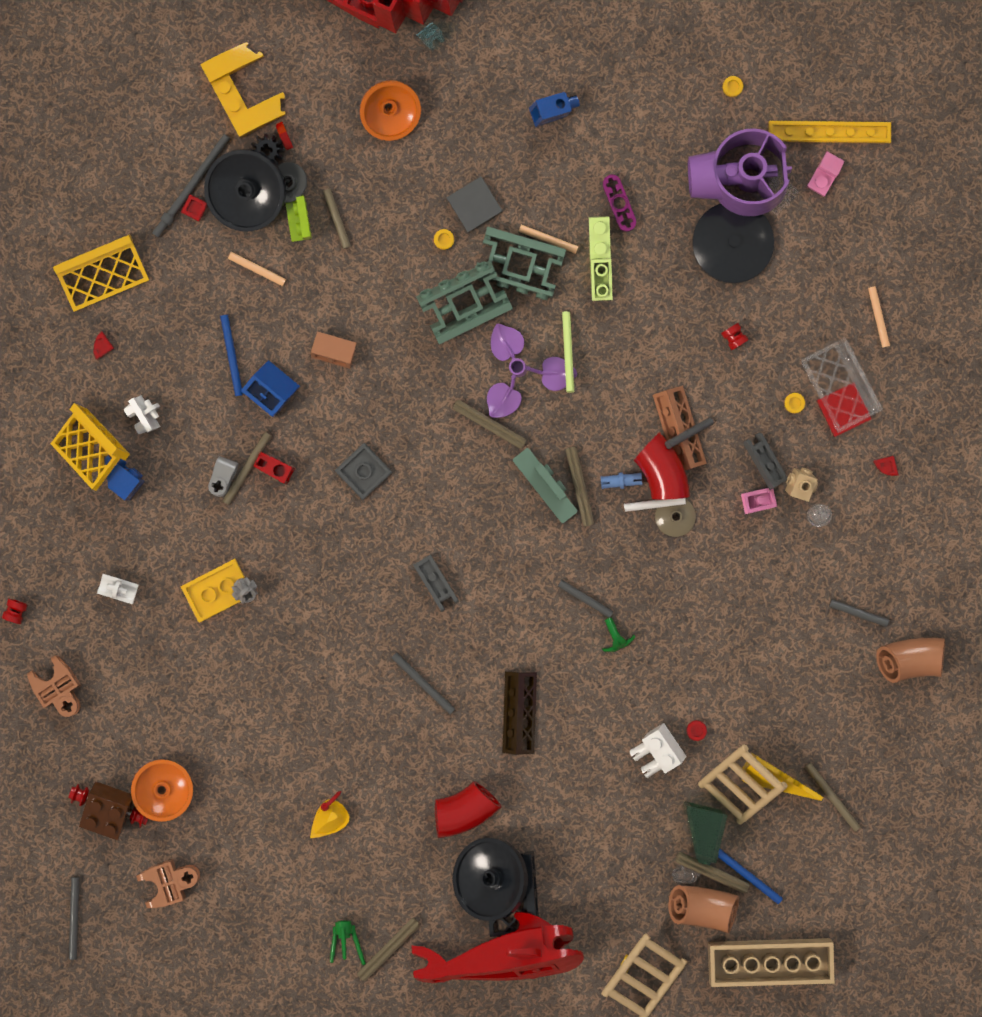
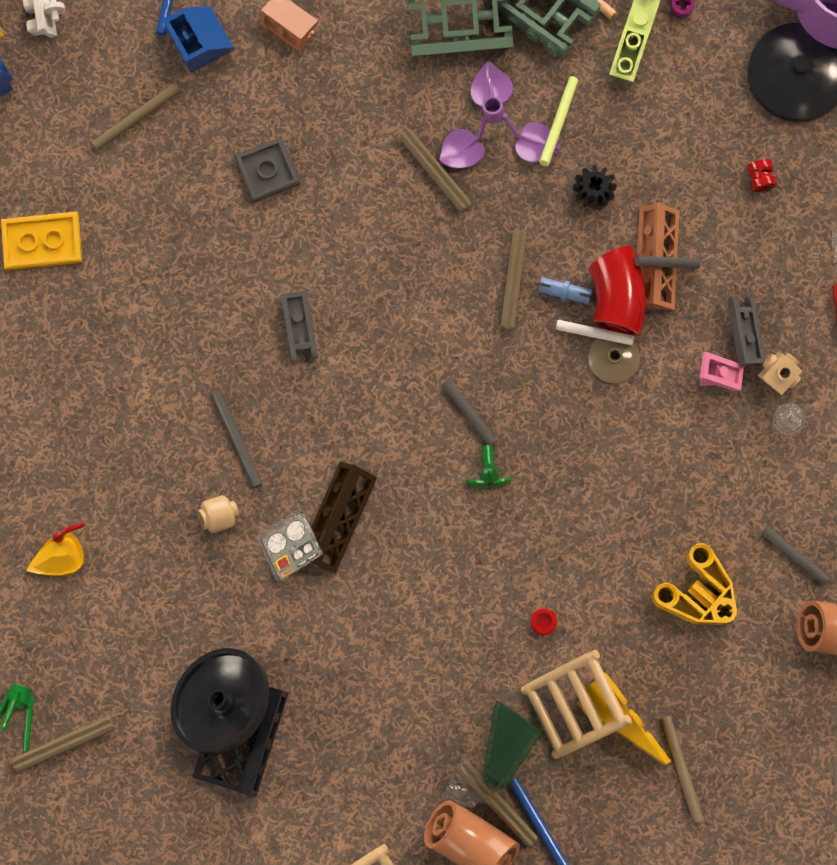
camera: 25 degrees right, 10 degrees down
(223, 472) = (104, 112): light grey piece -> none
(244, 590) = (71, 246): light grey gear -> none
(274, 467) = (166, 126): red leg -> none
(432, 744) = (217, 514): none -> tan head
(464, 810) = (222, 605): red brick -> none
(493, 748) = (289, 545): none -> clear tile
(524, 954) = (226, 809): red animal -> none
(542, 481) = (474, 263): sand green bracket -> none
(606, 394) = (598, 178): none -> black gear
(663, 748) = (494, 625): white brick -> none
(794, 403) = (805, 279): yellow tile -> none
(794, 683) = (714, 575): none -> yellow connector

